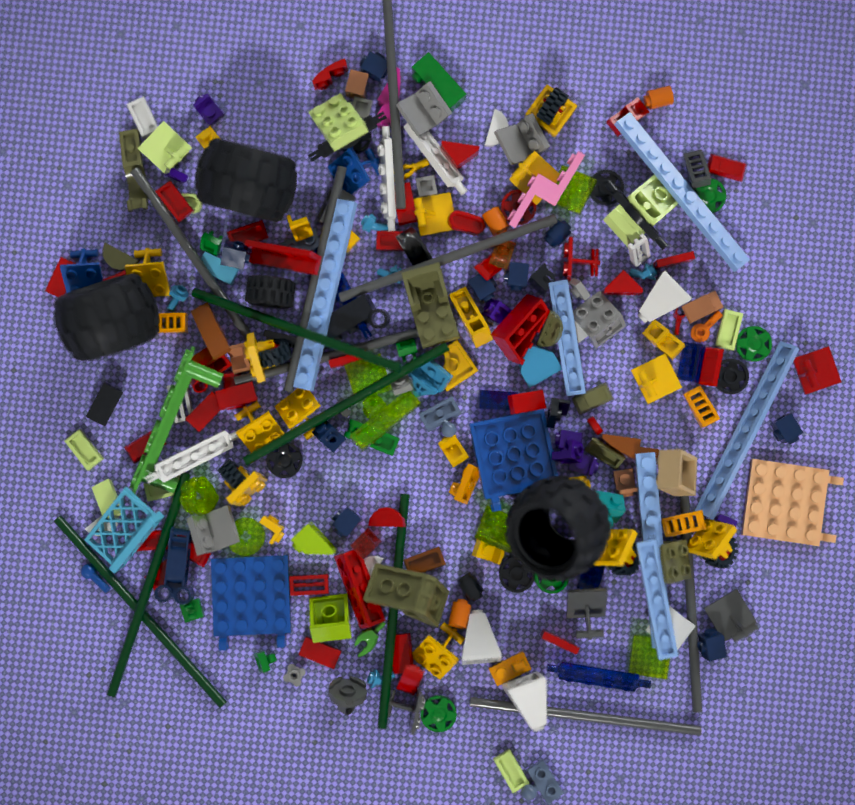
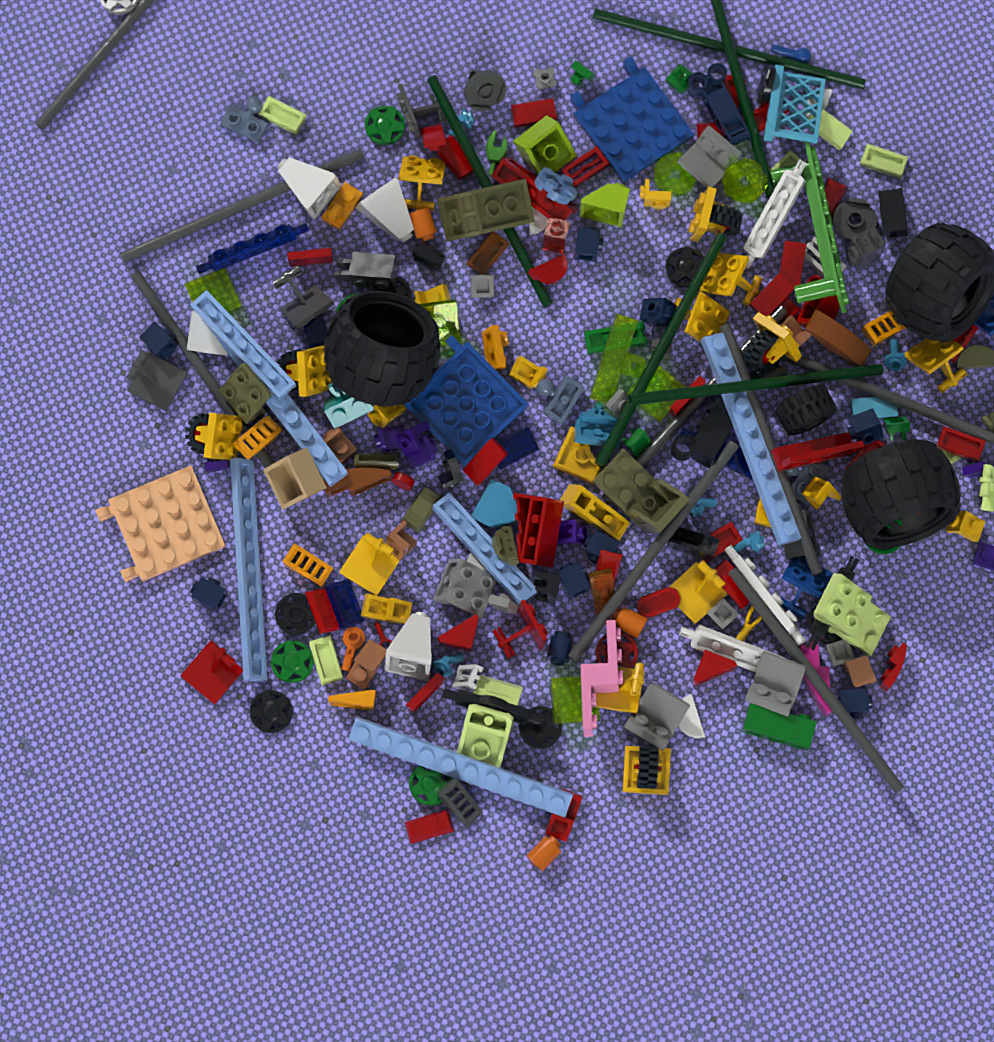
camera: 145 degrees right, 10 degrees down
(126, 417) = (848, 209): none -> dark grey plate
(132, 562) = (766, 84): none -> black wheel
(144, 387) = (865, 248): none -> dark grey hinge
(342, 580) = (558, 187): none -> medium blue plate
(445, 538) = (482, 285): none -> light grey plate
(522, 602) = (369, 270): none -> dark grey hinge
(624, 381) = (400, 541): none -> nougat panel
(726, 285) = (357, 700): none -> light orange slope
(790, 317) = (271, 711): none -> black wheel

